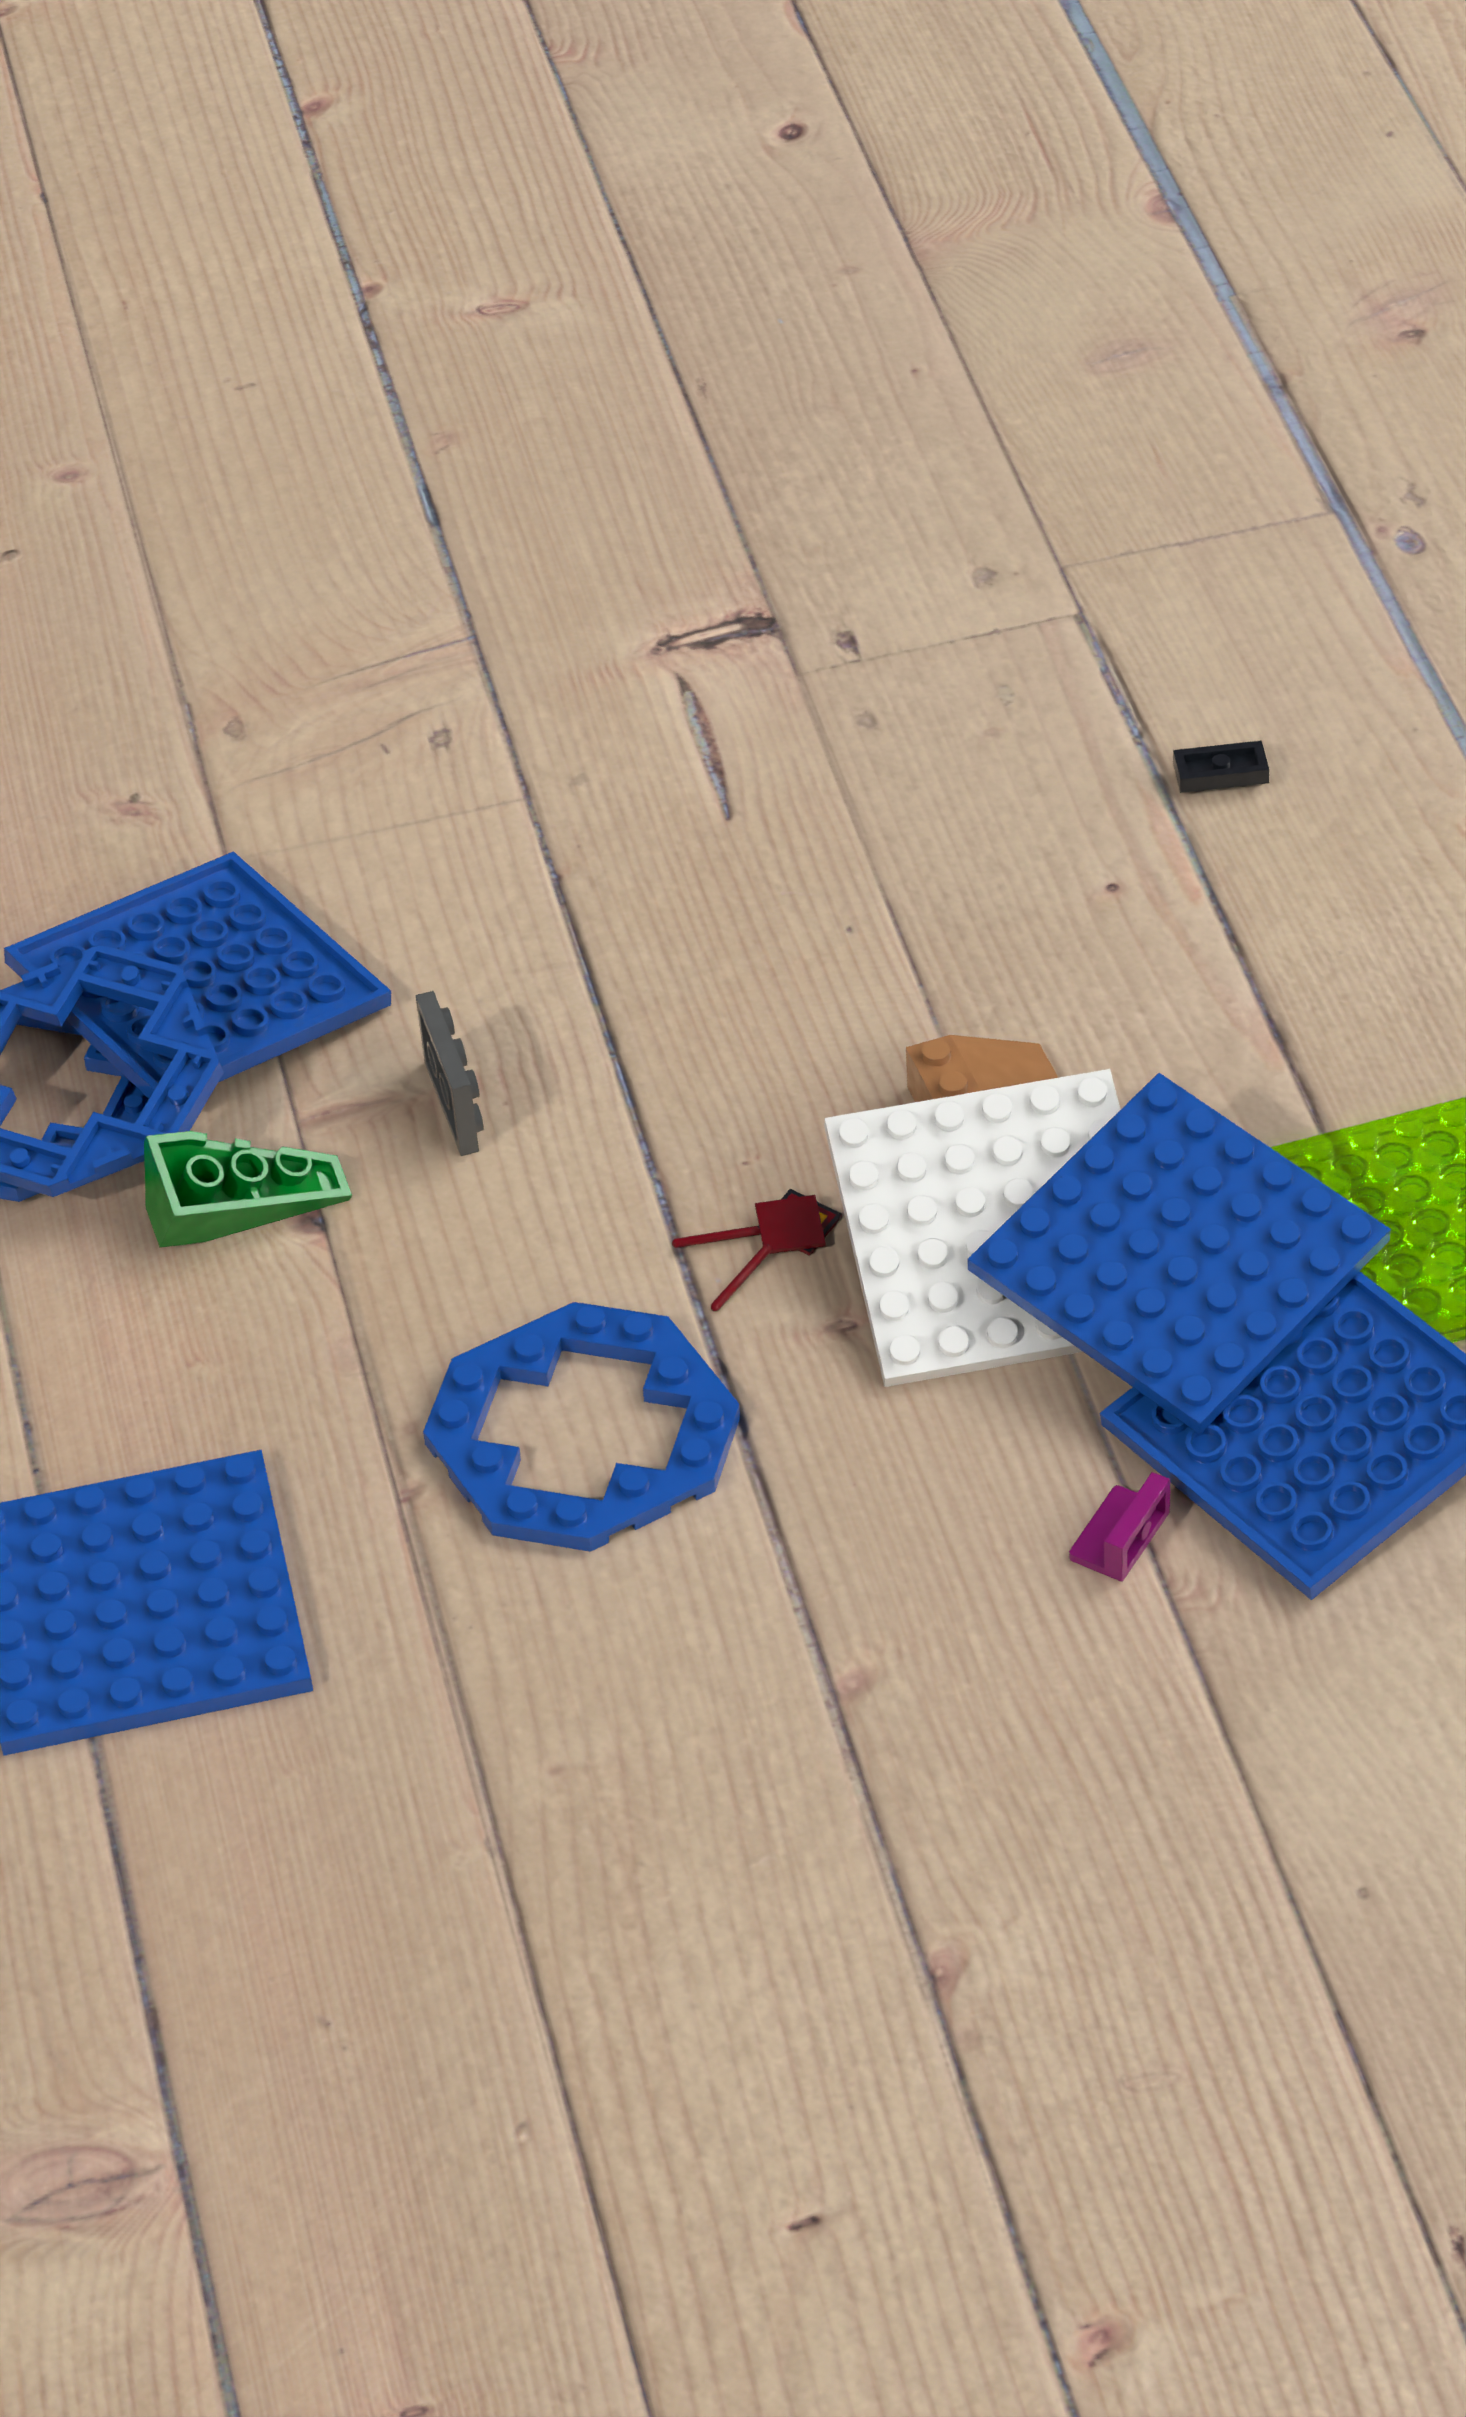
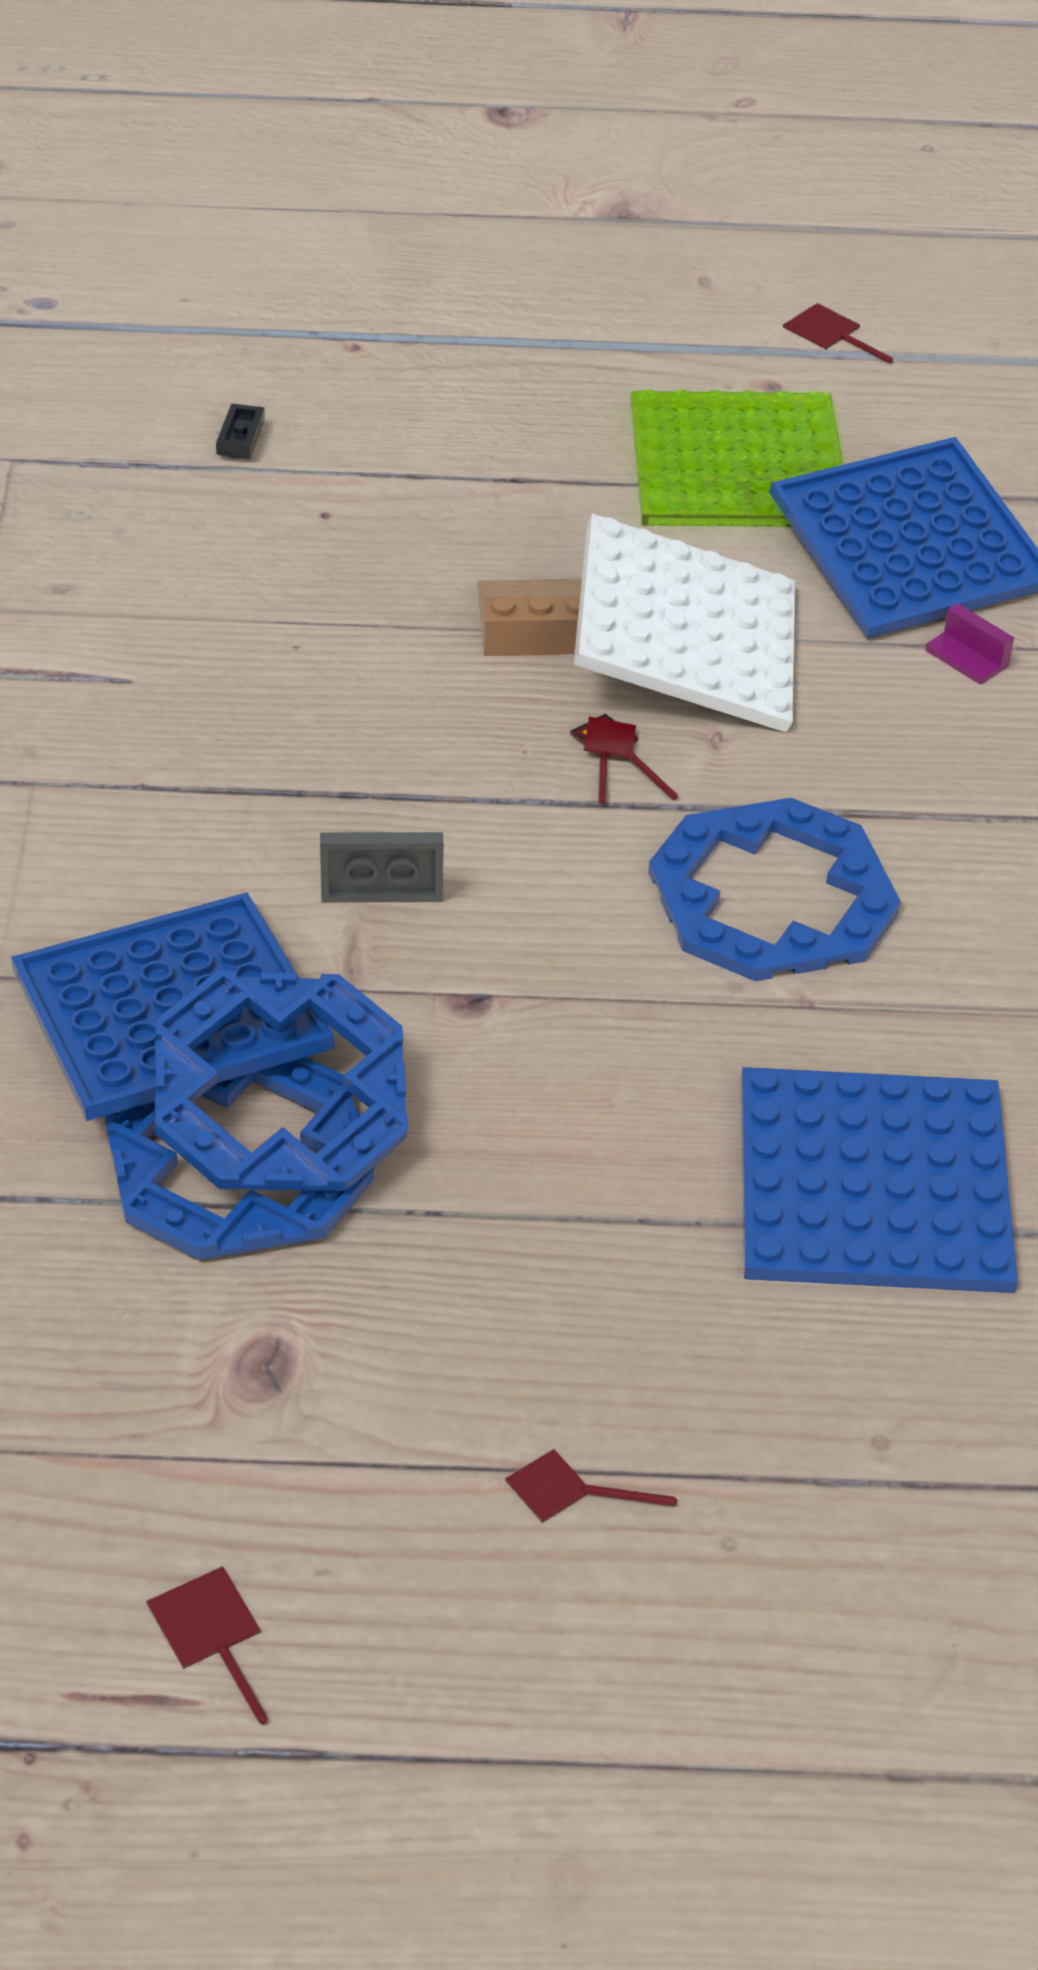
camera: 80 degrees left, 0 degrees up
(221, 1188) = (447, 1029): green wedge -> none
(1179, 1252) = (764, 538): blue plate -> none

